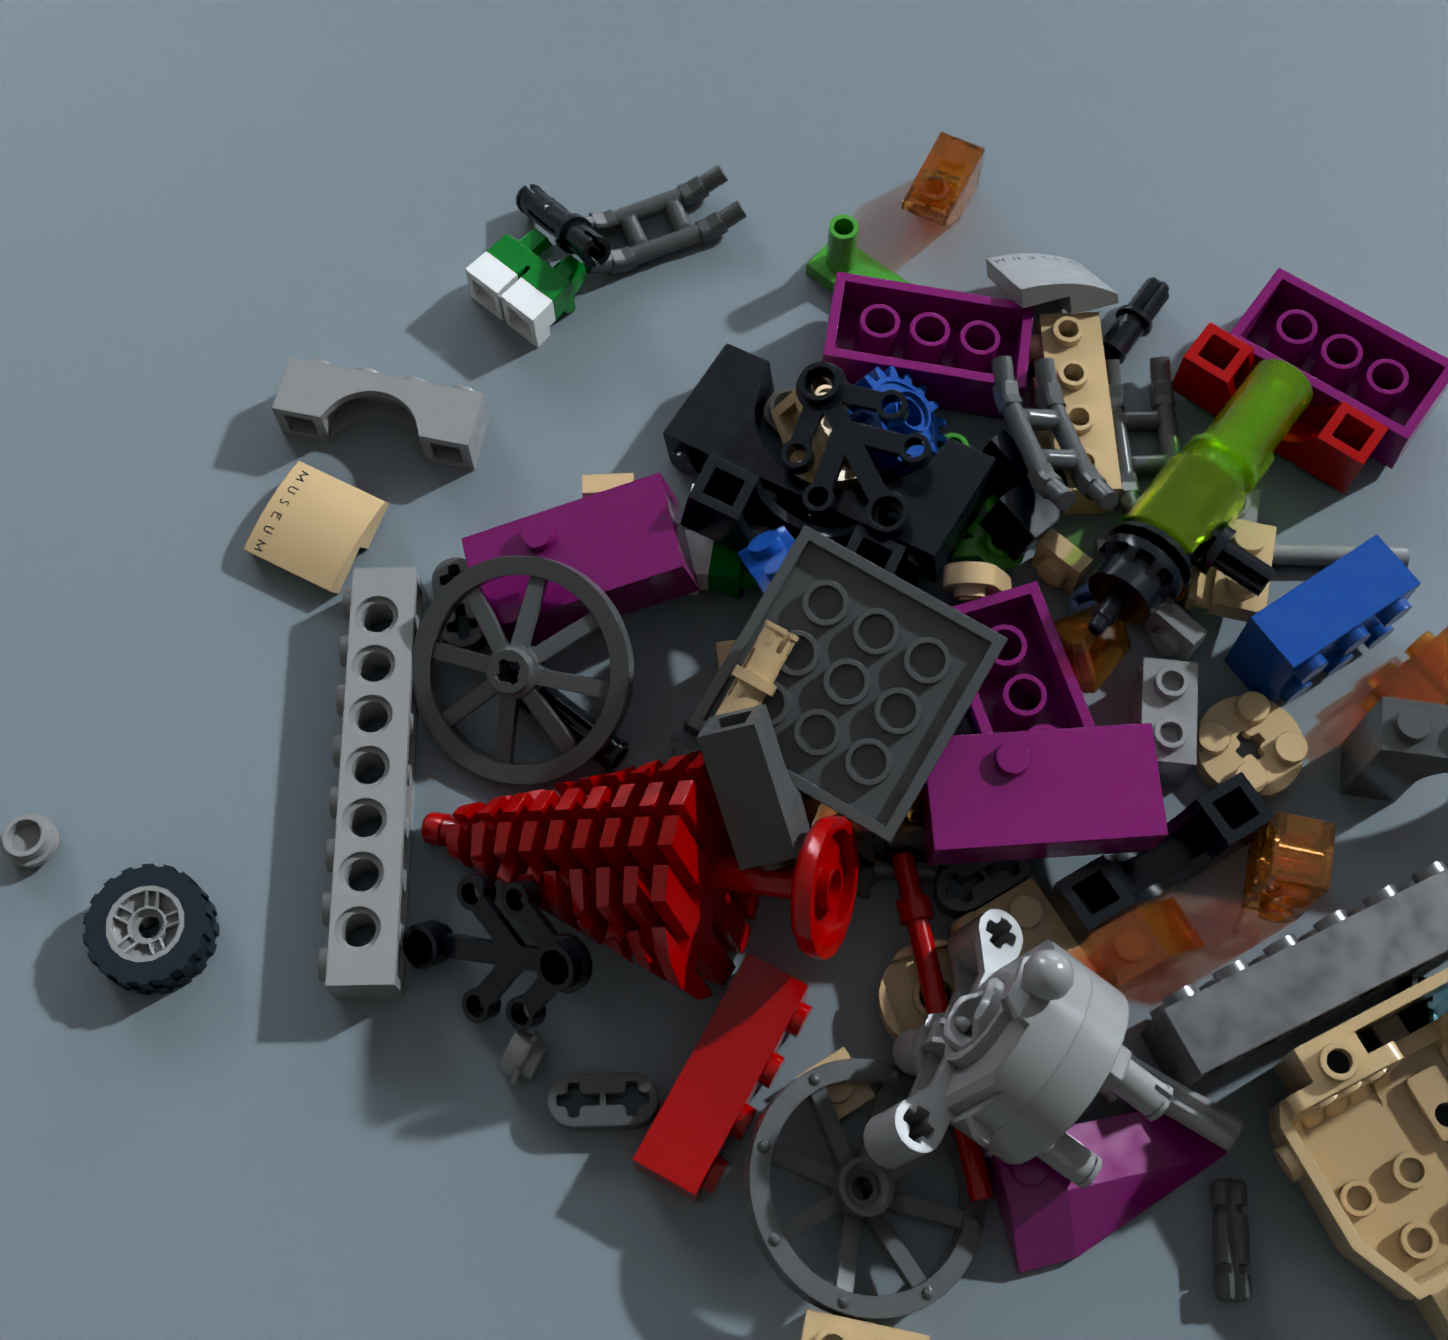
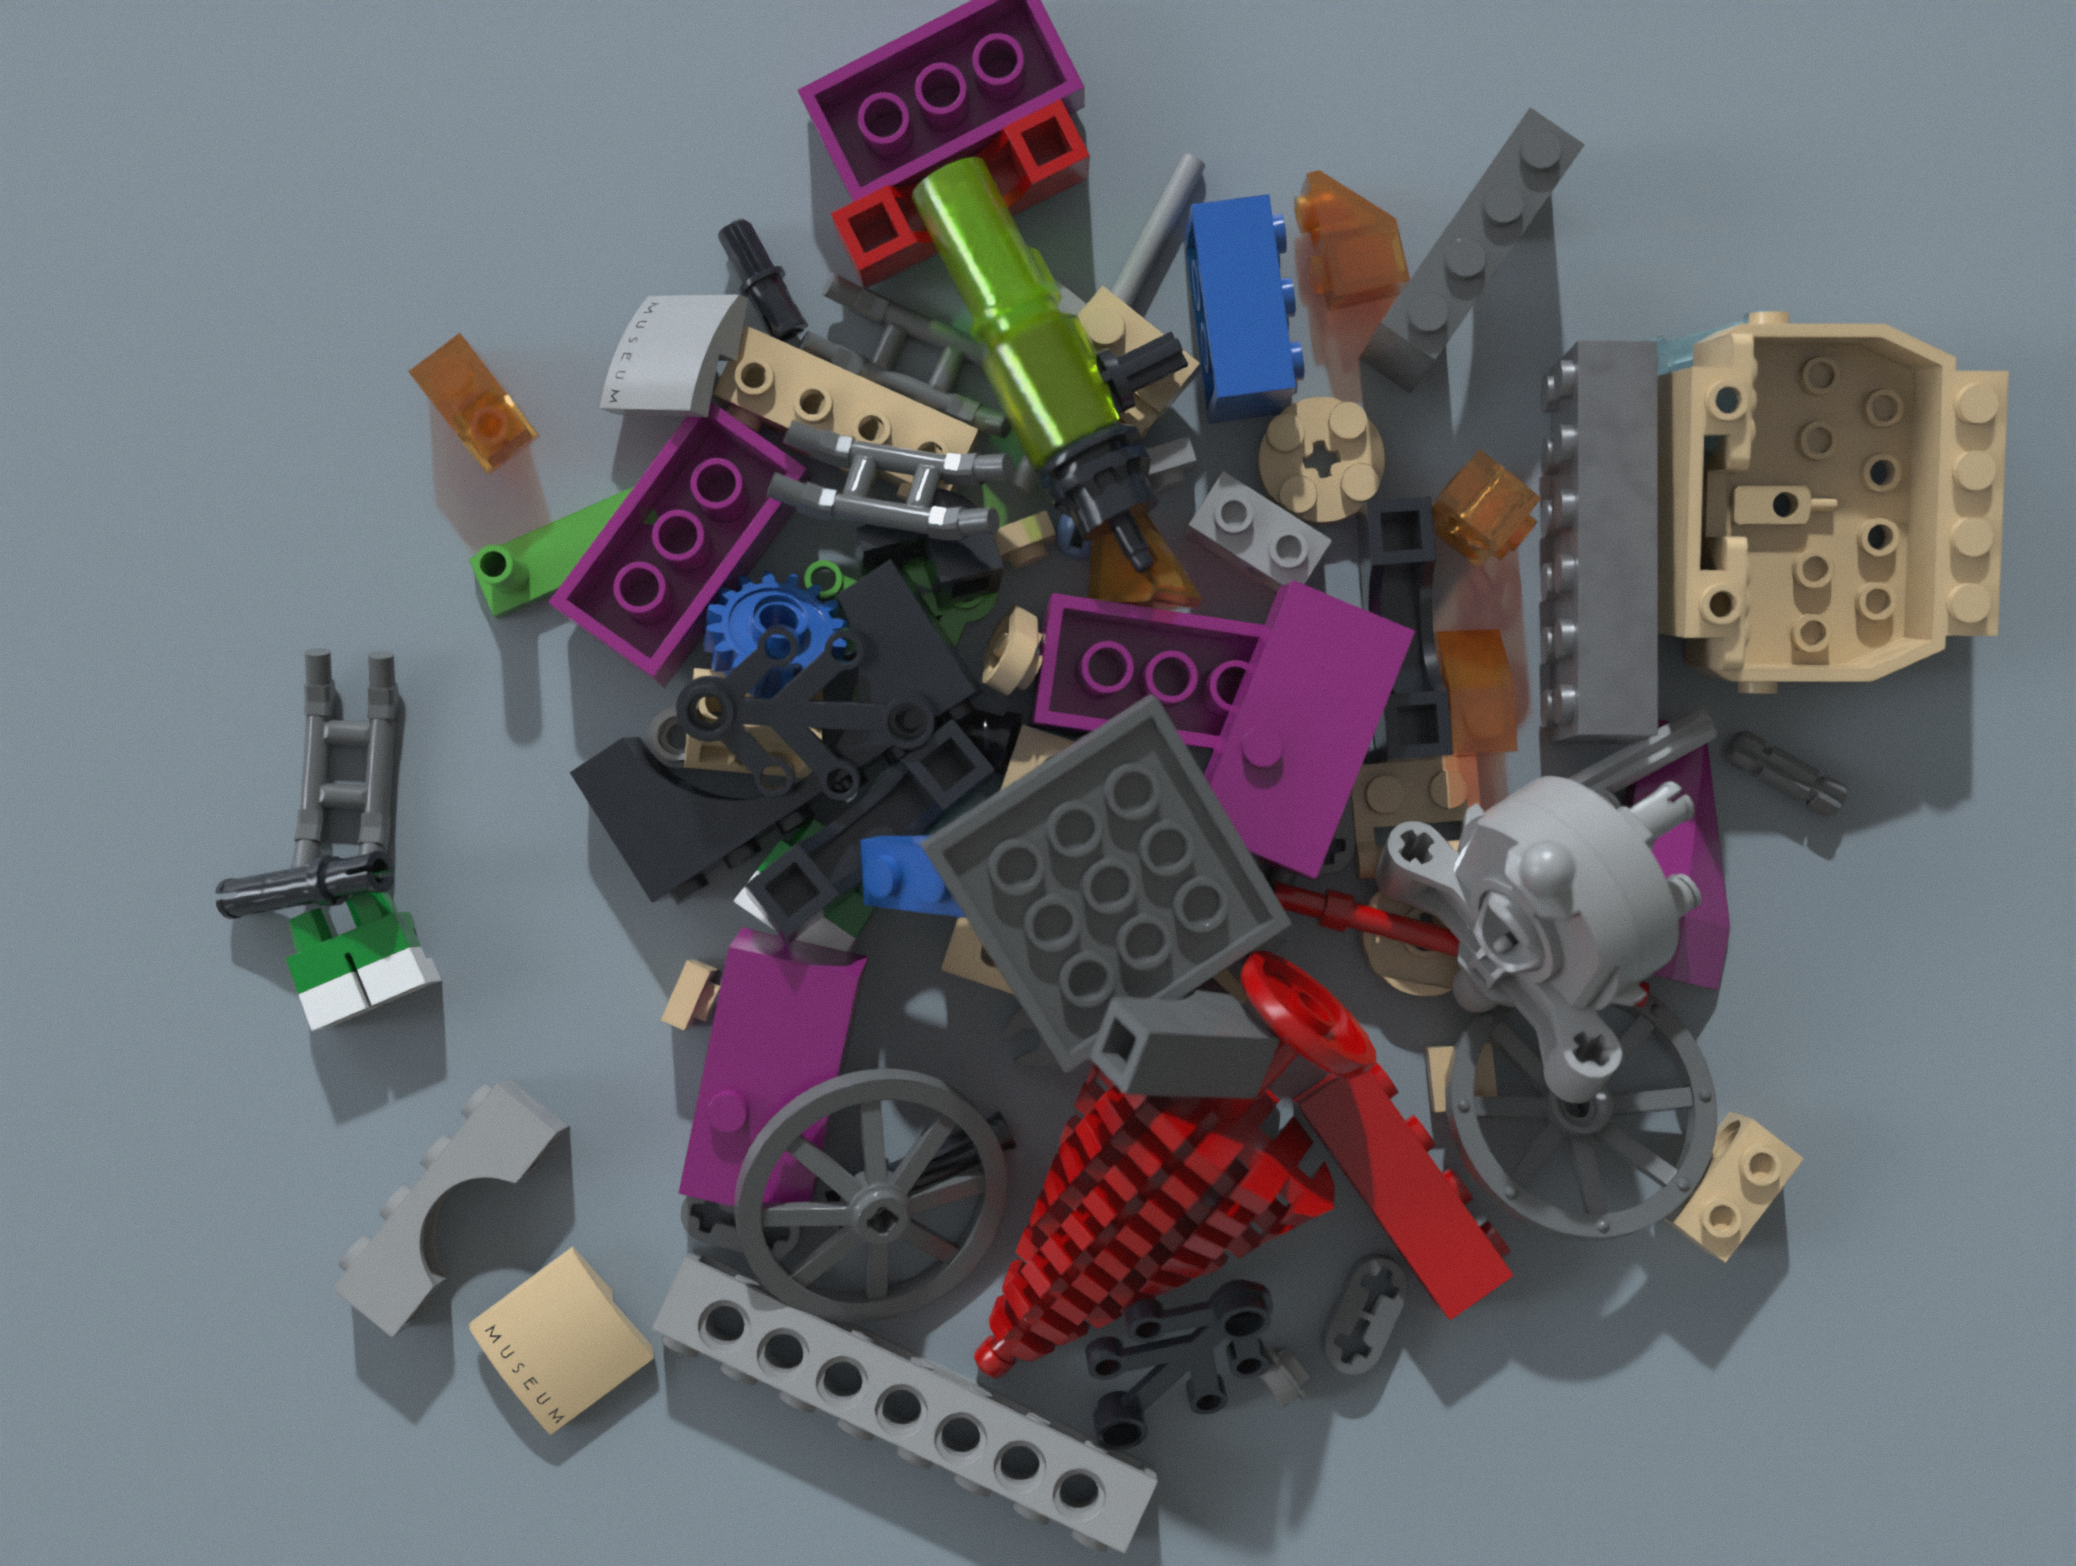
camera: 65 degrees left, 20 degrees up
(759, 669) = (1063, 982): tan pin -> none

